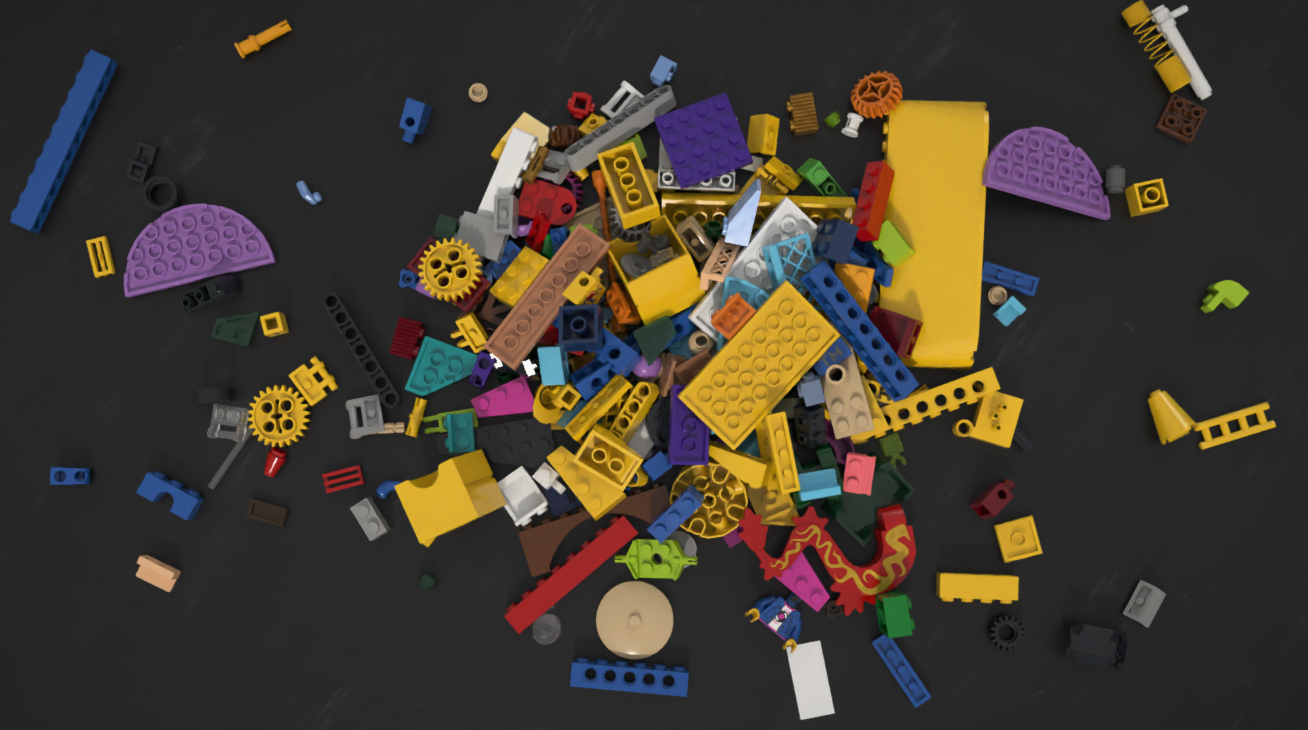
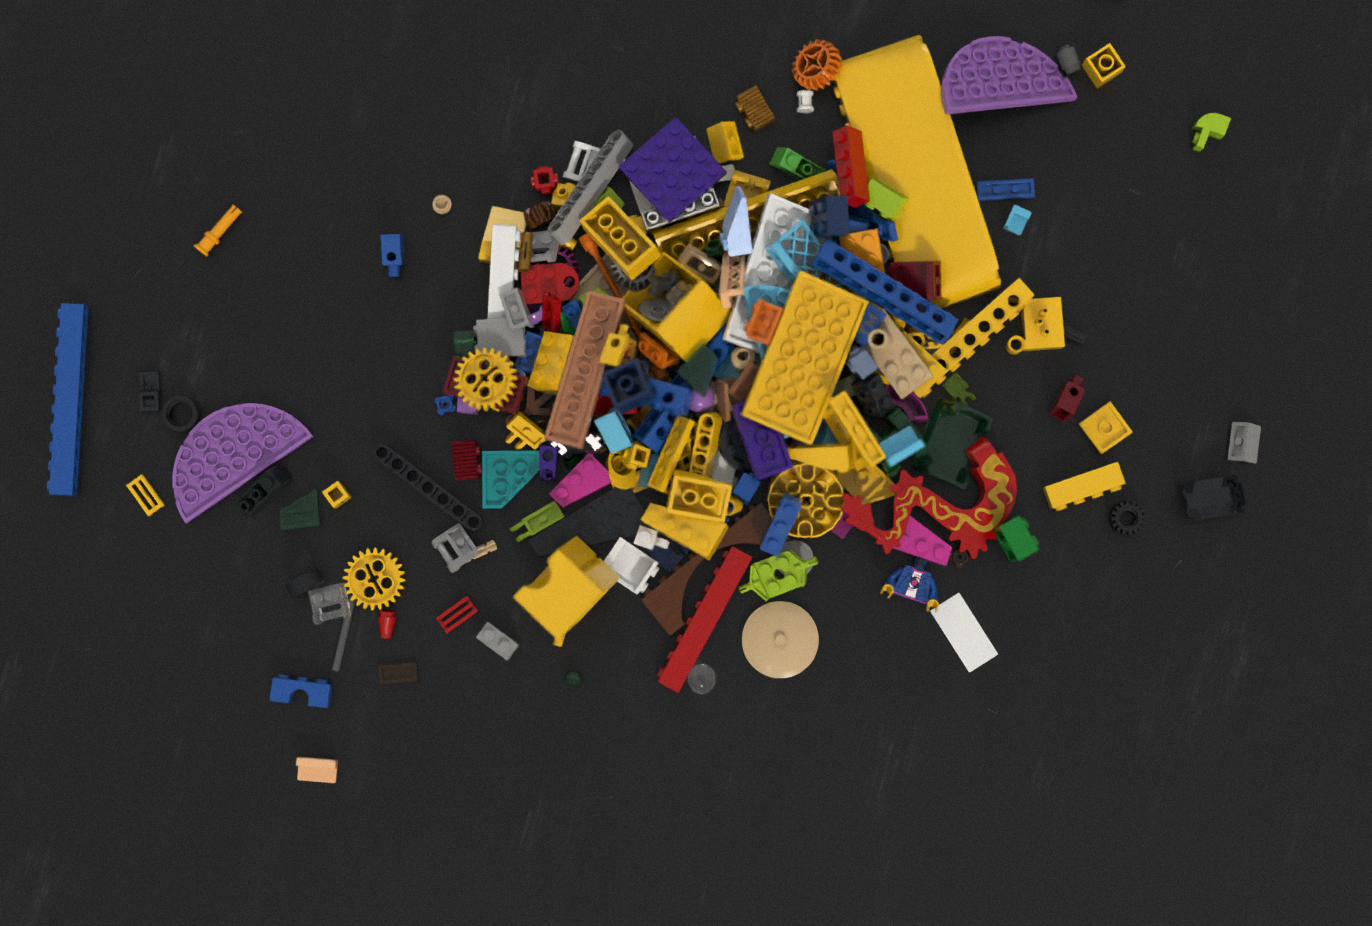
camera: 25 degrees left, 0 degrees up
(69, 476) = (199, 710): blue leg -> none
(306, 194) = (316, 361): medium blue arm -> none
(309, 385) = (390, 539): yellow plate -> none
(385, 488) = (501, 605): blue arm -> none
(416, 417) = (503, 530): yellow pin -> none
(460, 433) = (551, 528): teal bracket -> none
(619, 683) = (845, 685): blue brick -> none
(662, 71) = (608, 119): medium blue brick -> none
(783, 173) = (758, 171): yellow plate -> none
(833, 119) = (785, 103): clear neon green plate -> none
(859, 473) = (935, 423): coral plate -> none
(901, 670) = (1043, 589): blue plate -> none
(997, 295) = (1001, 209): tan plate -> none
(1169, 417) = (1201, 261): yellow cone -> none
(1245, 429) = (1263, 258): yellow bar -> none

